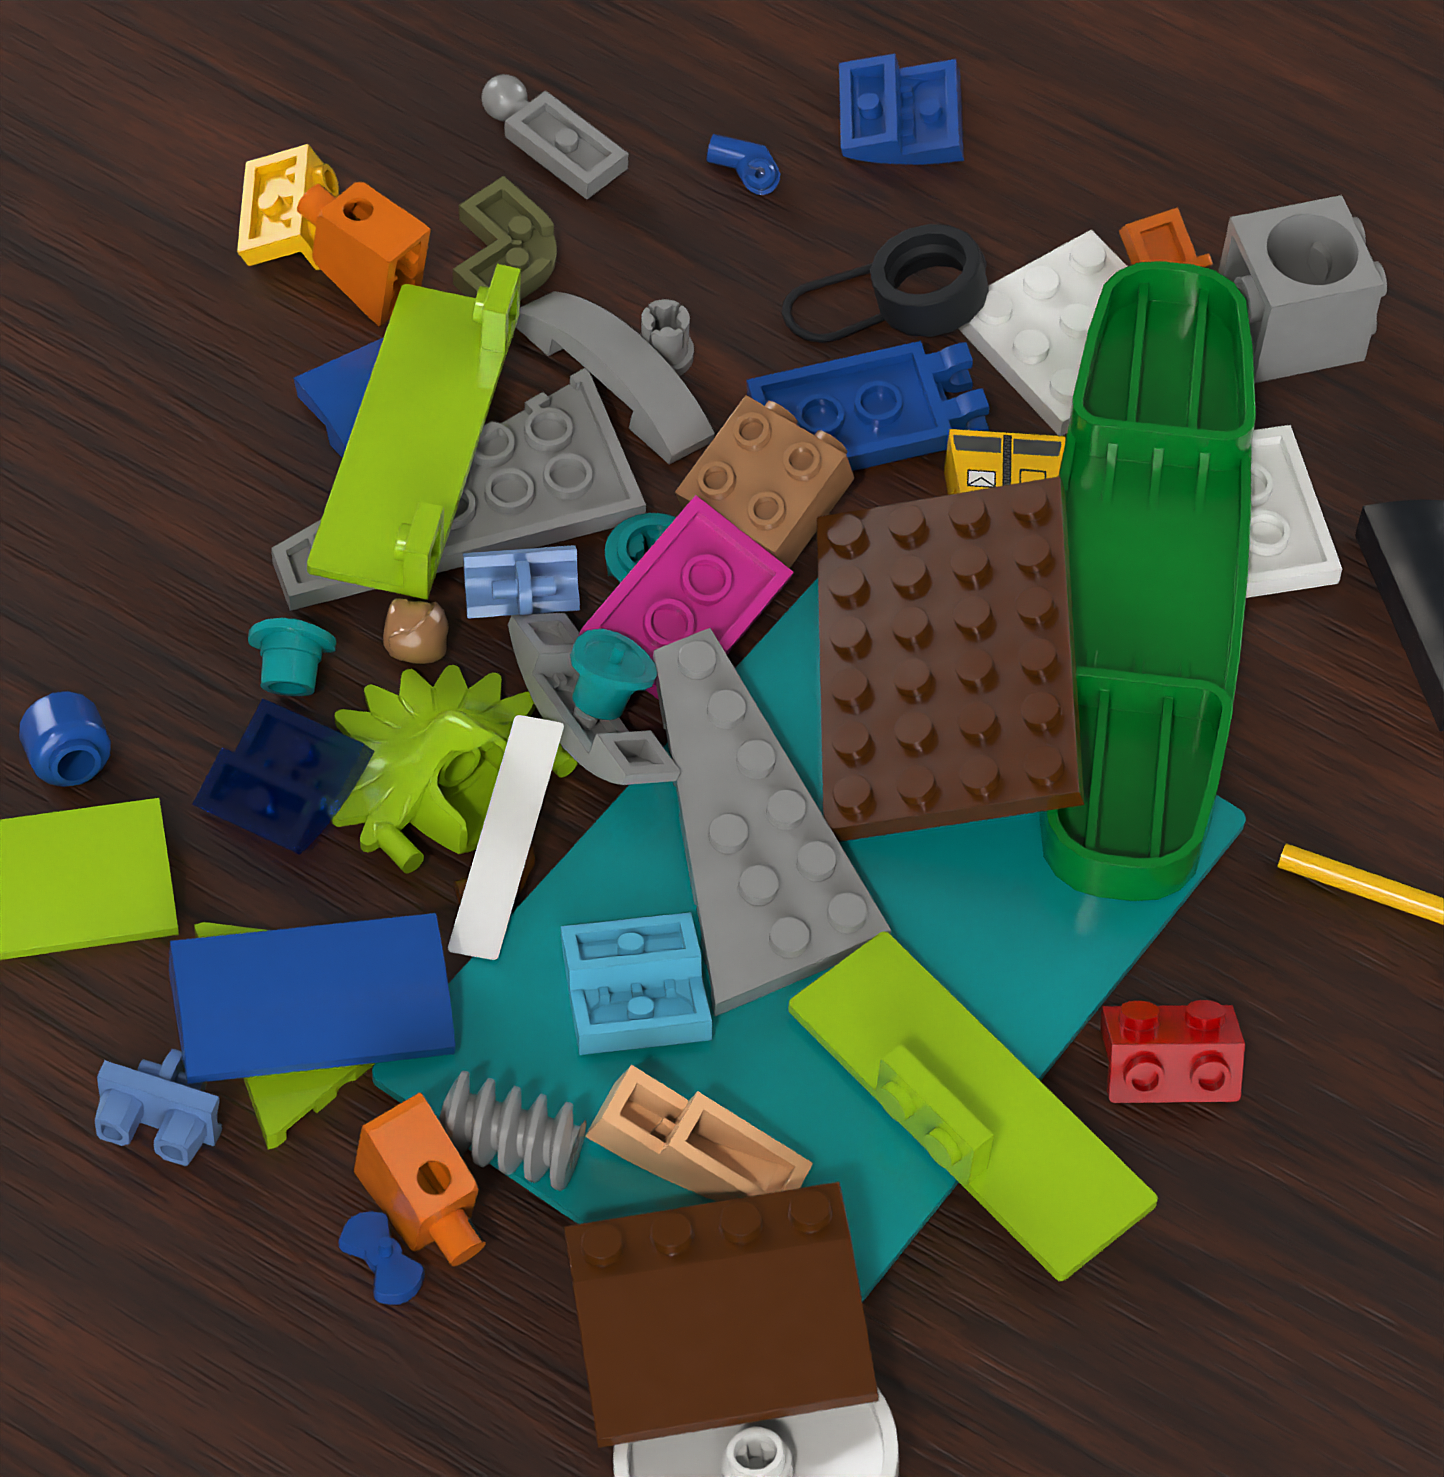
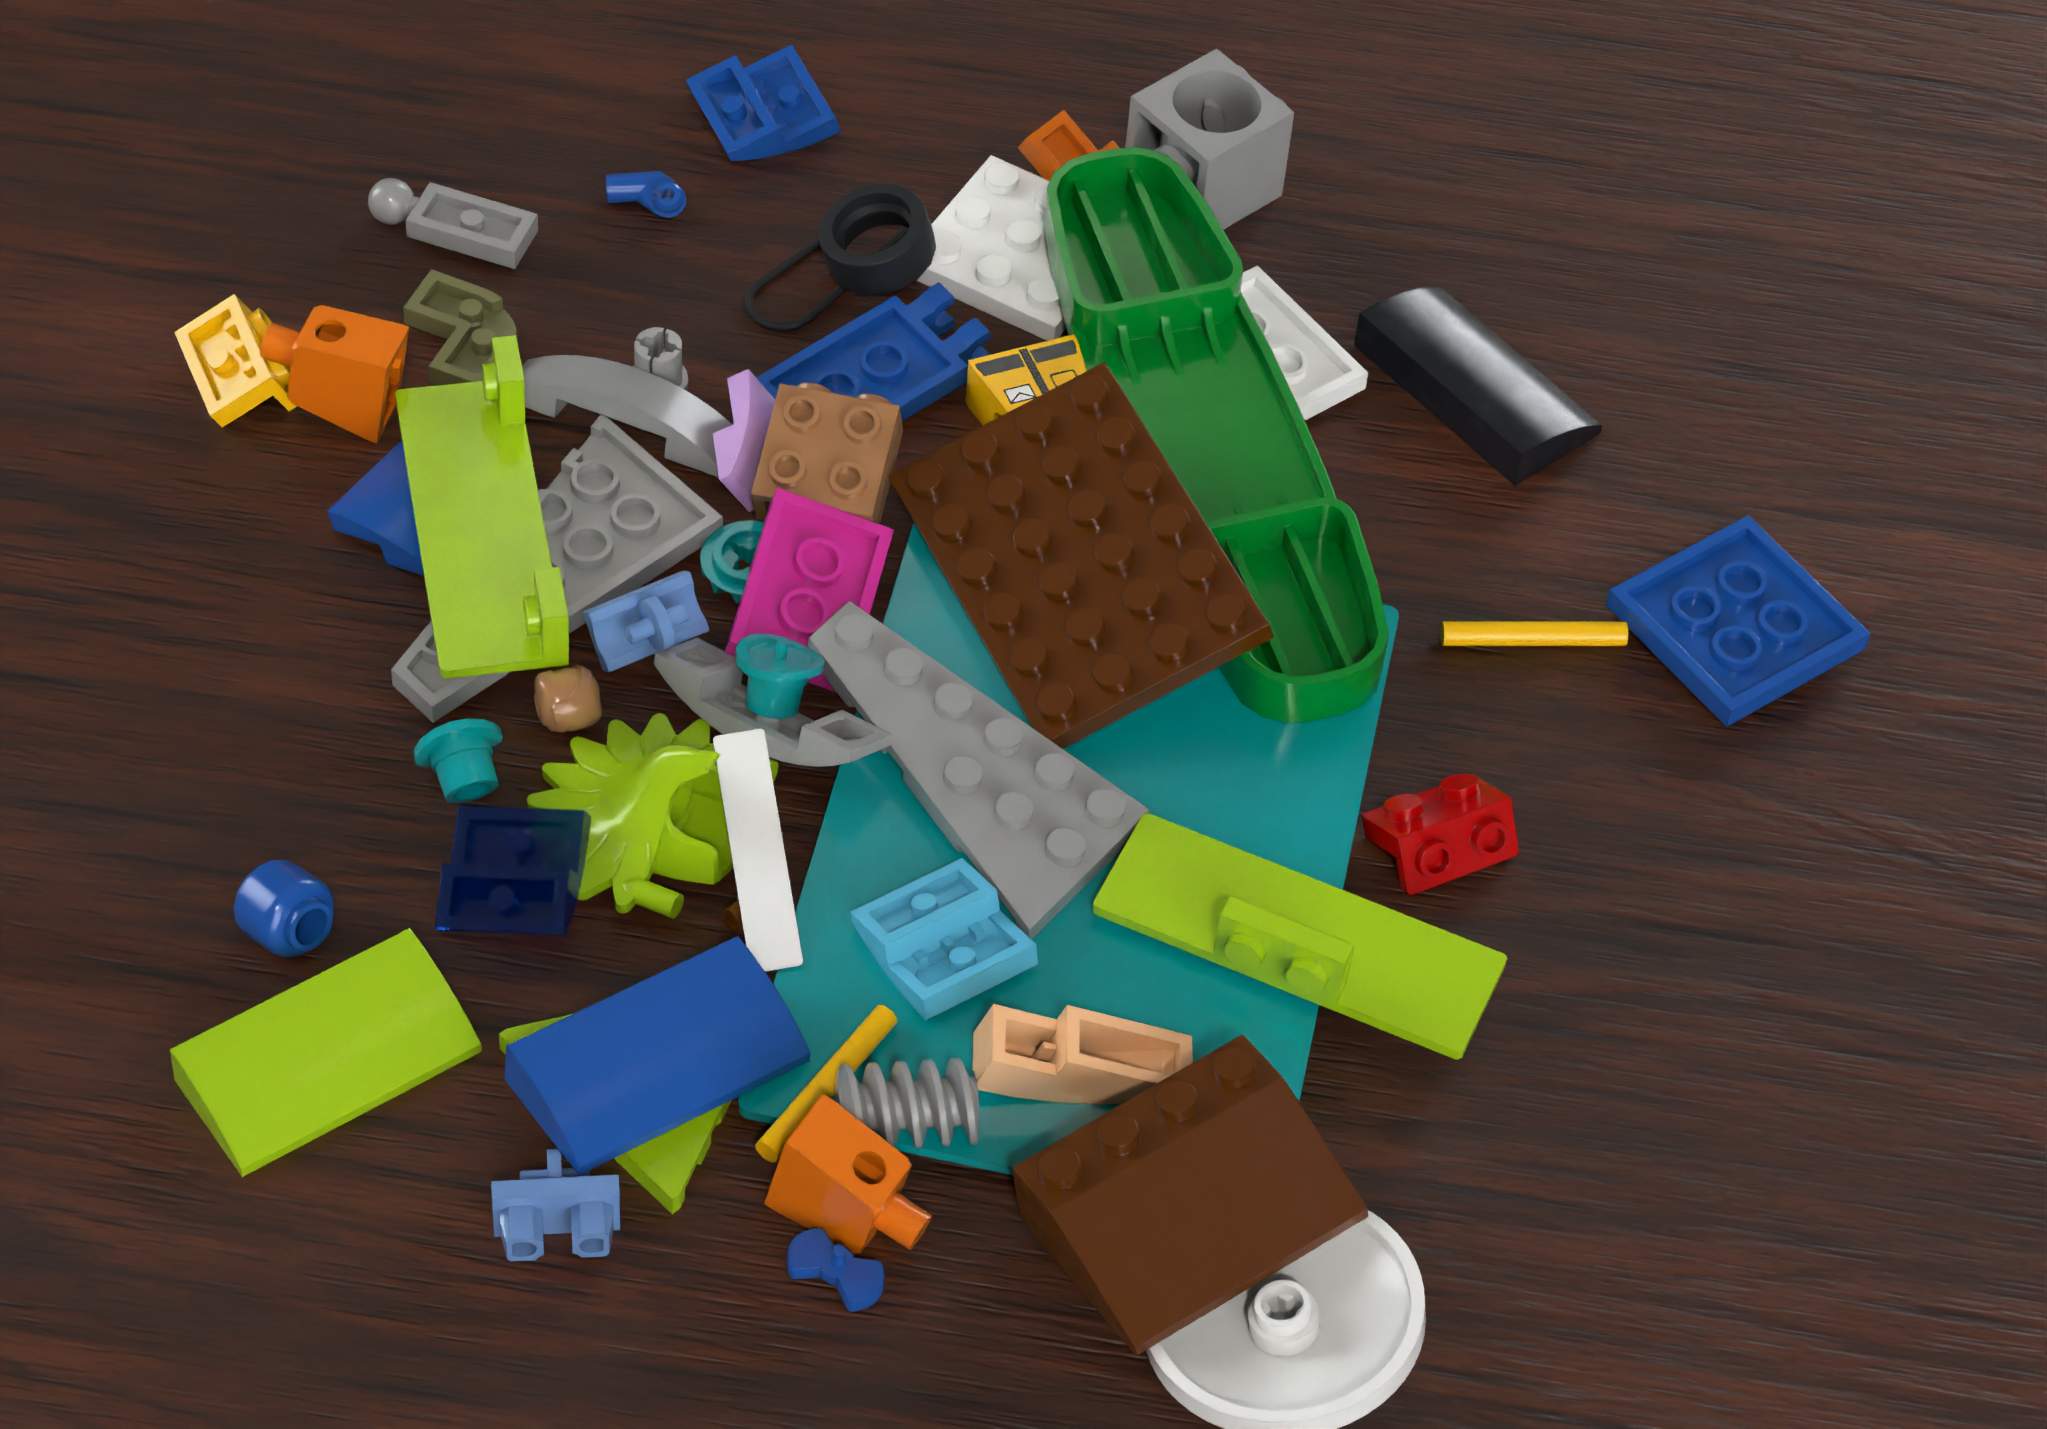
camera: 25 degrees left, 5 degrees down
(480, 1068) = (852, 1052): none -> yellow bar
(691, 437) = (741, 444): none -> lavender slope

